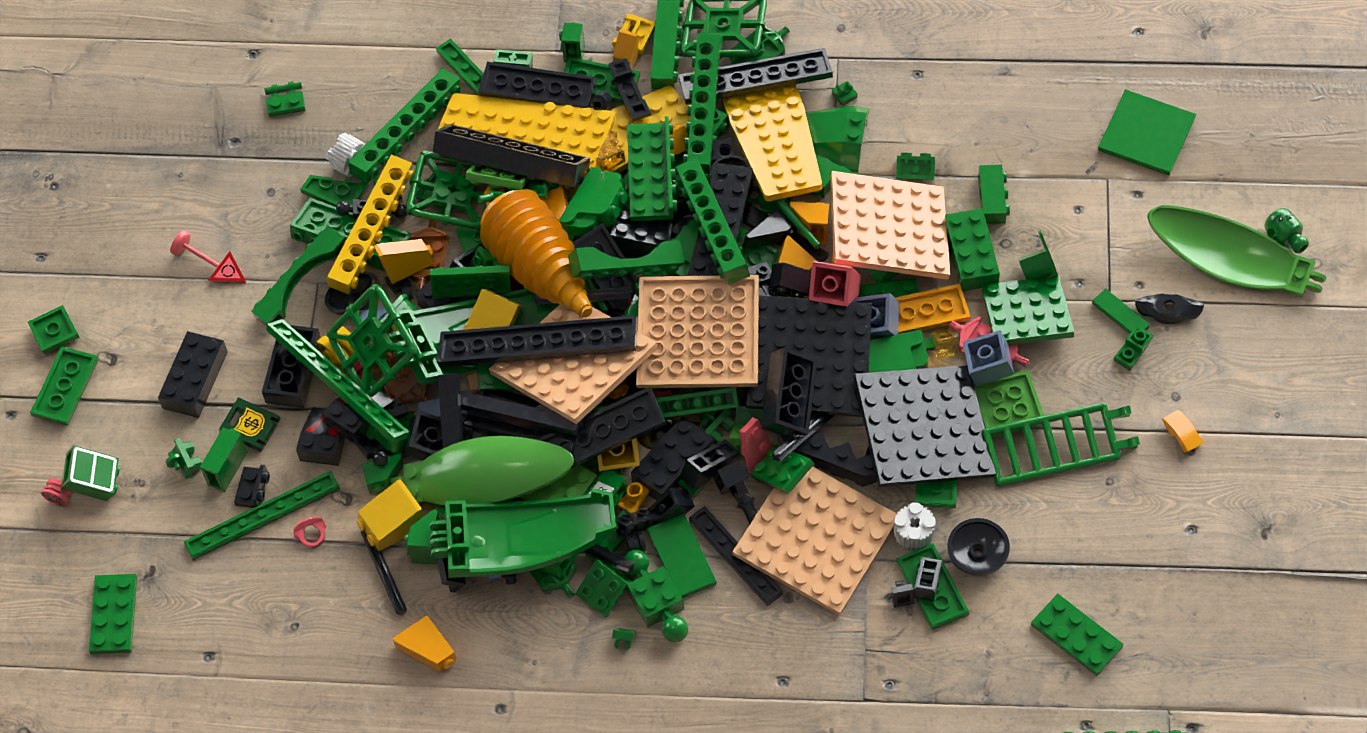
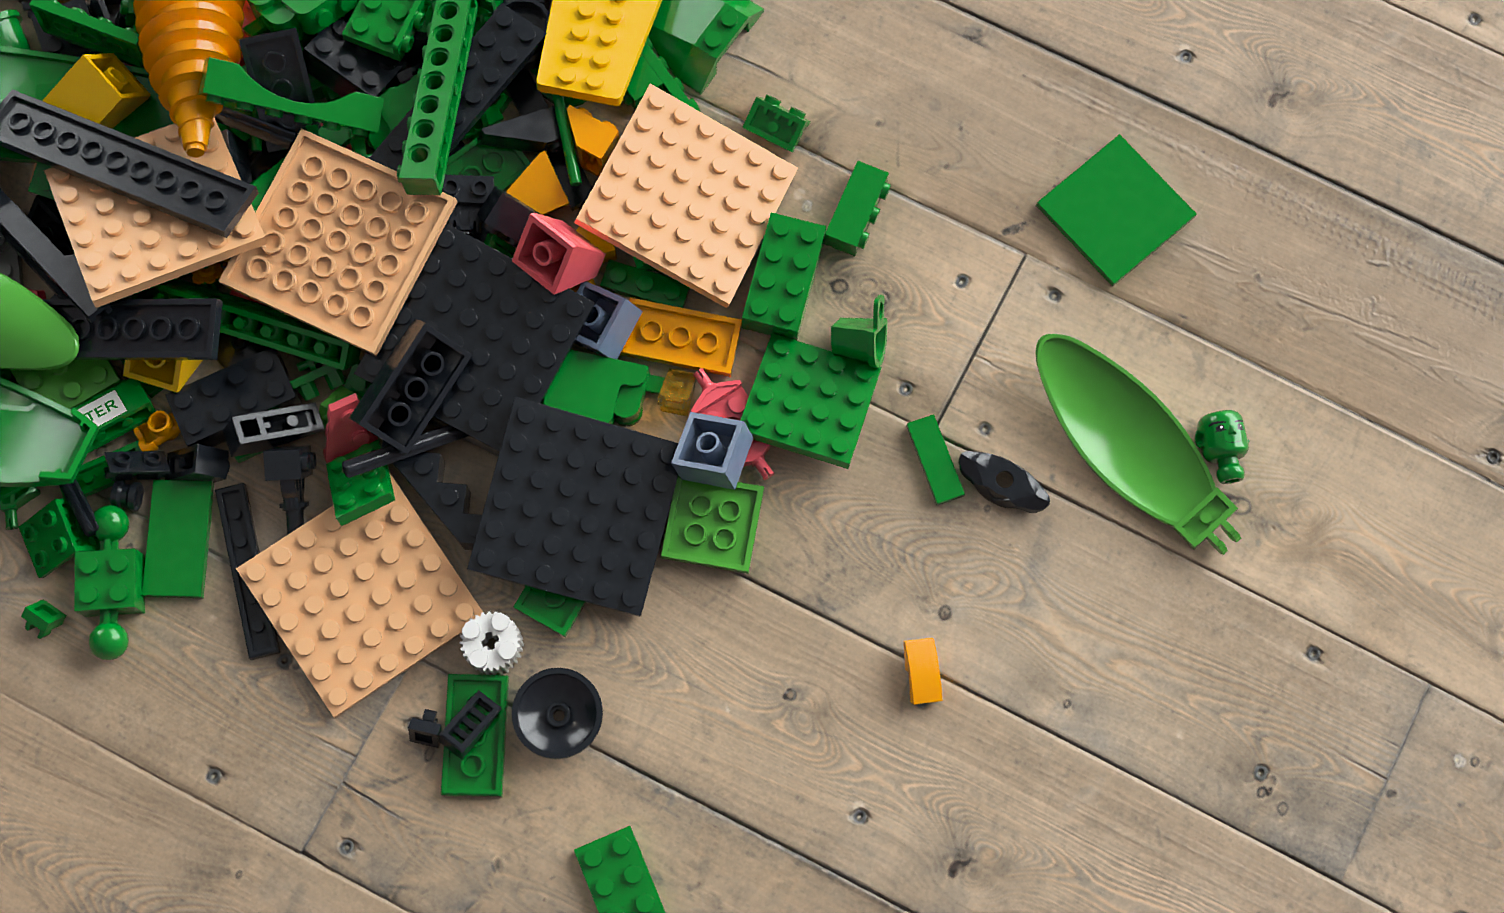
camera: 20 degrees right, 15 degrees up
(1107, 416) = (729, 644): green bar -> none
(1133, 348) = (923, 518): green slope -> none

